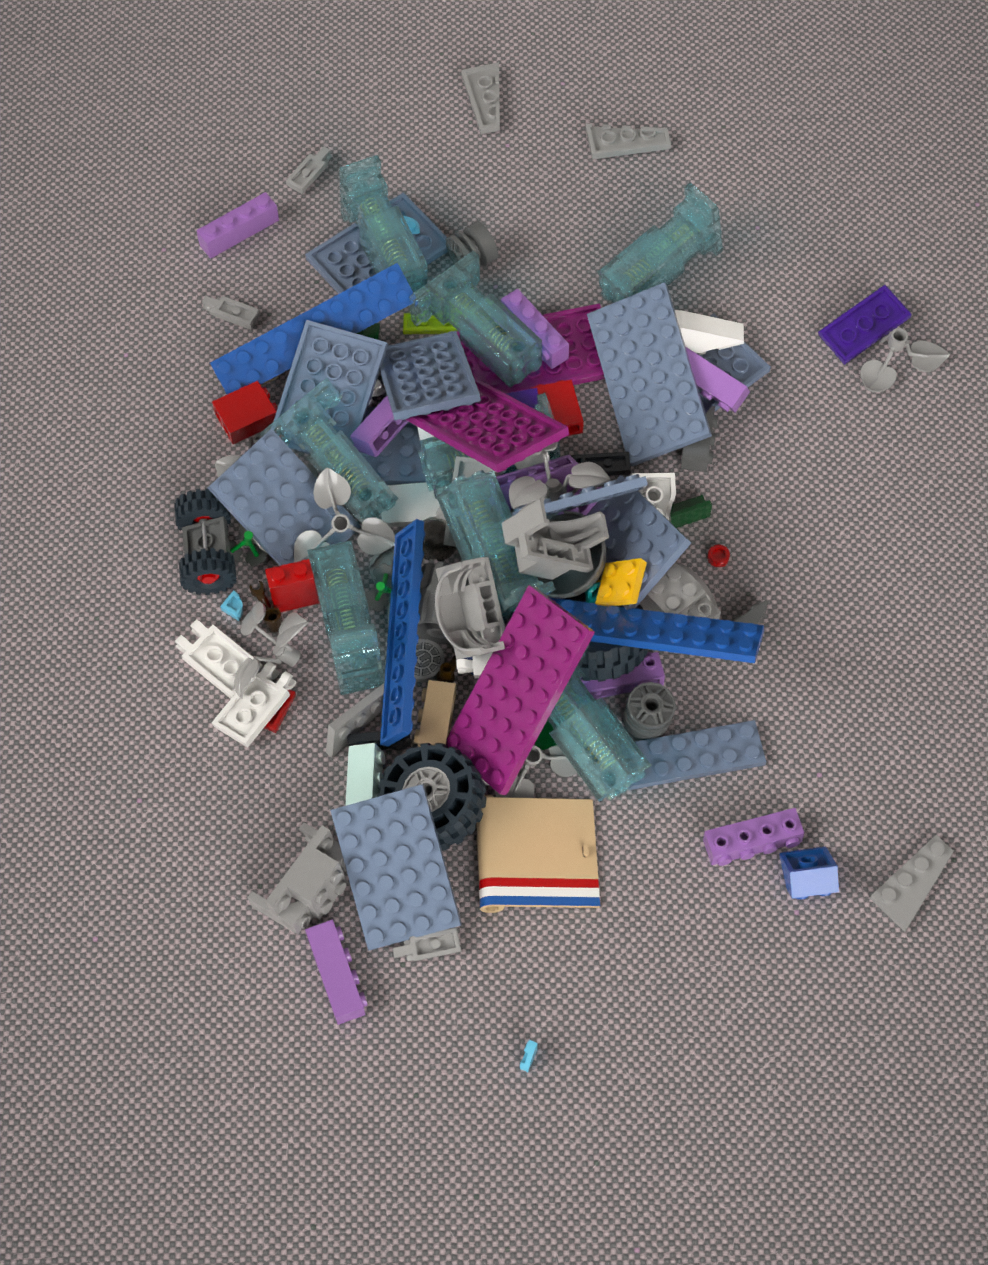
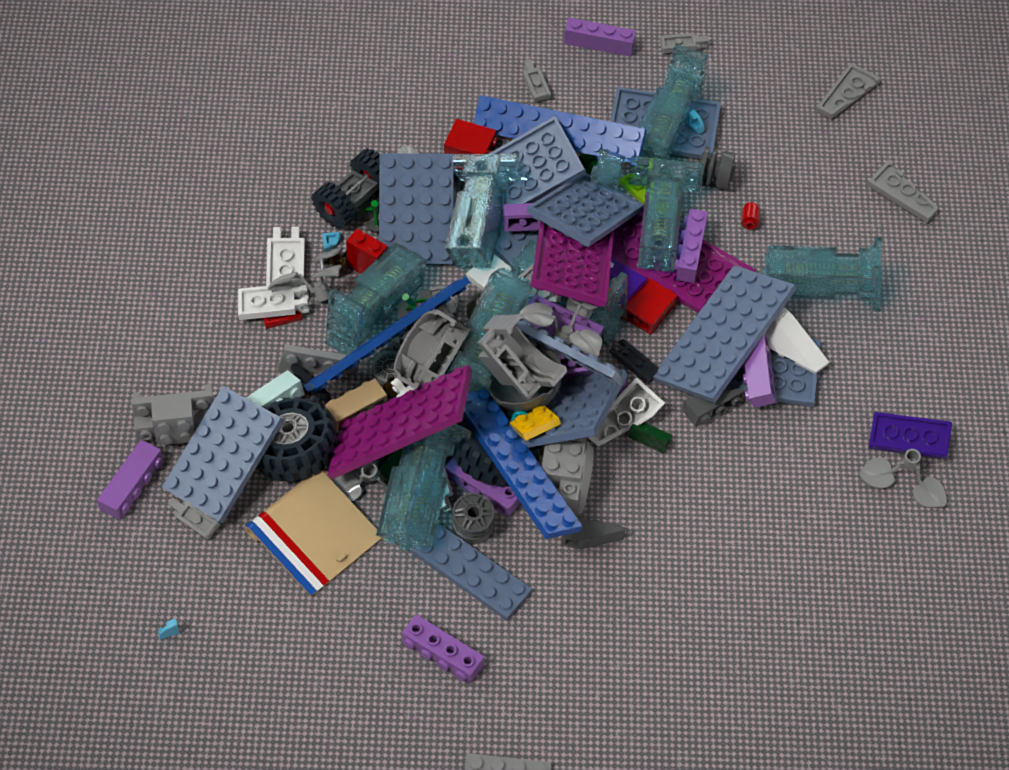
camera: 45 degrees right, 5 degrees down
(334, 490) = (445, 221): light grey plant -> none
(400, 326) = (608, 169): none -> clear light blue brick
(540, 264) = (750, 216): none -> red brick
(718, 555) = (636, 479): red tile -> none
(809, 872) = (447, 701): slope -> none

